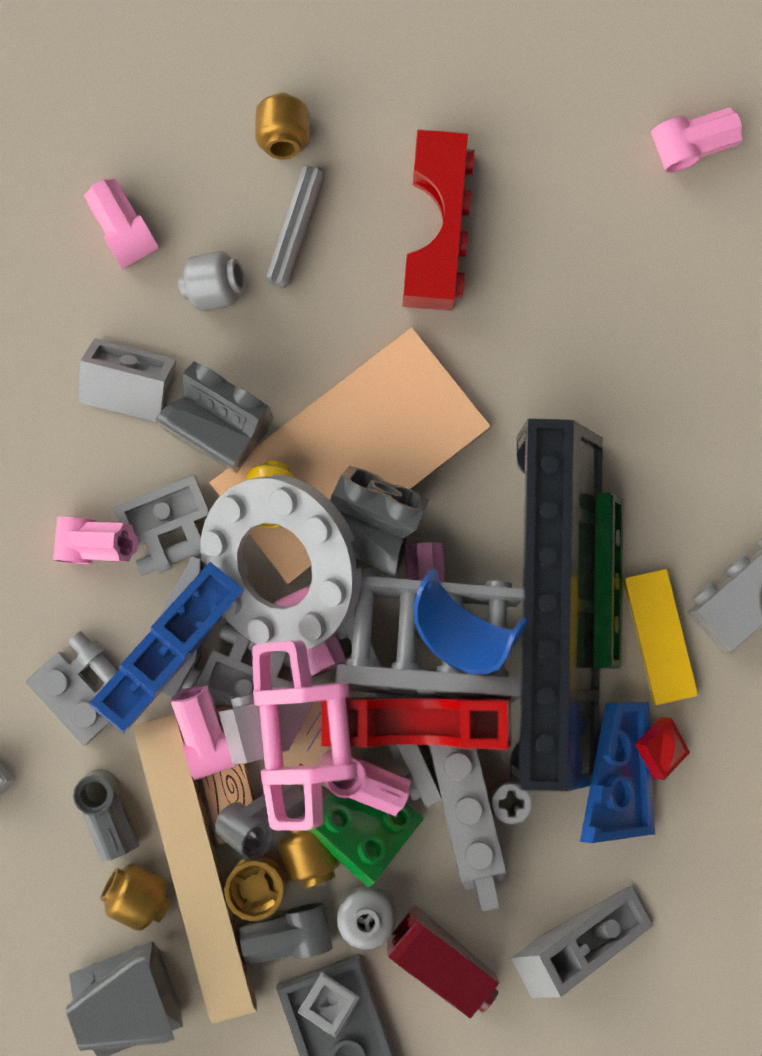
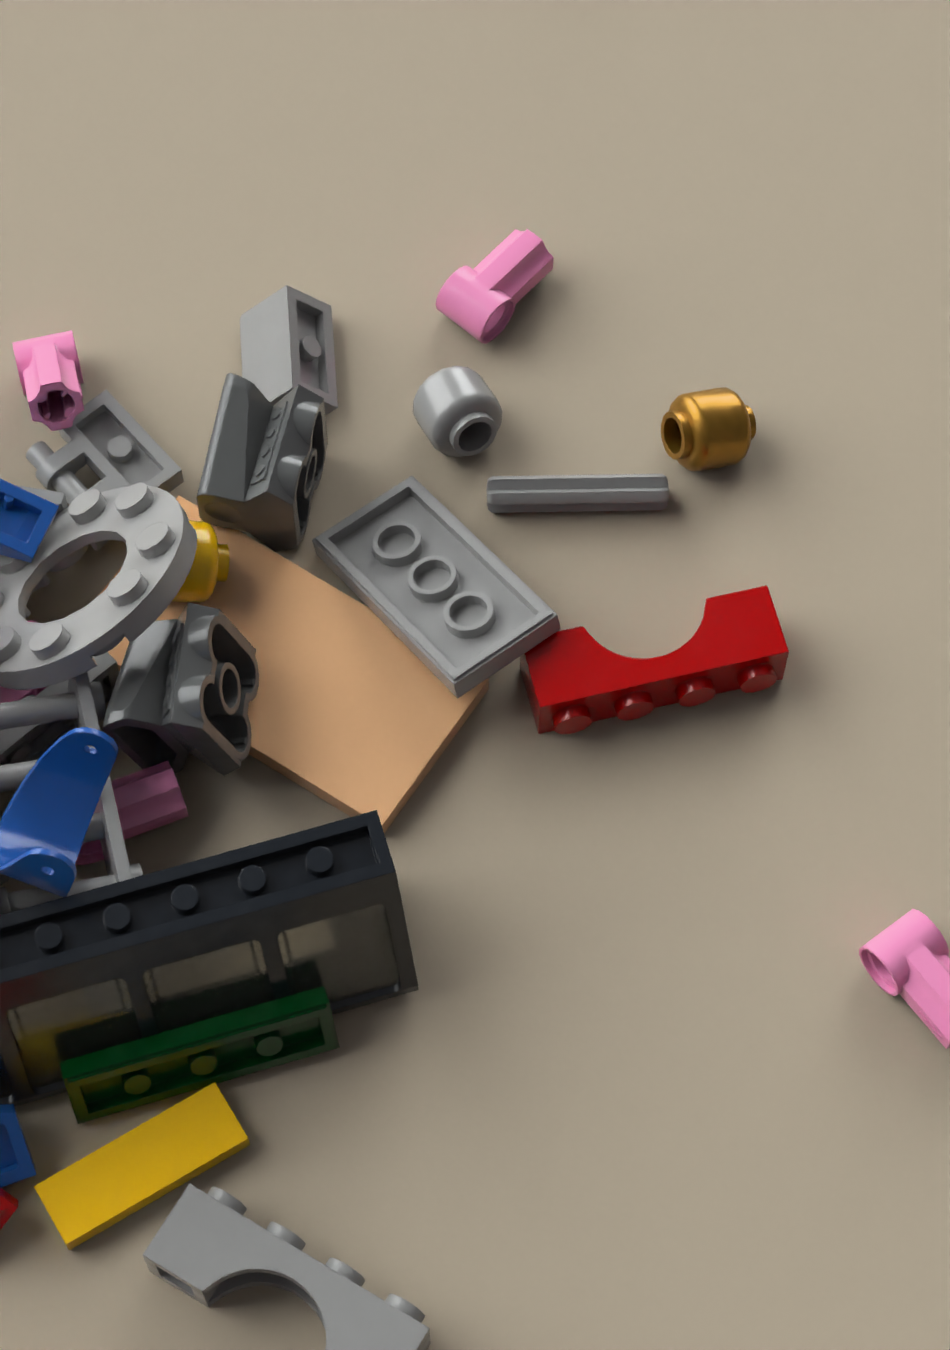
camera: 75 degrees right, 20 degrees down
(339, 337) = (436, 586): none -> light grey tile

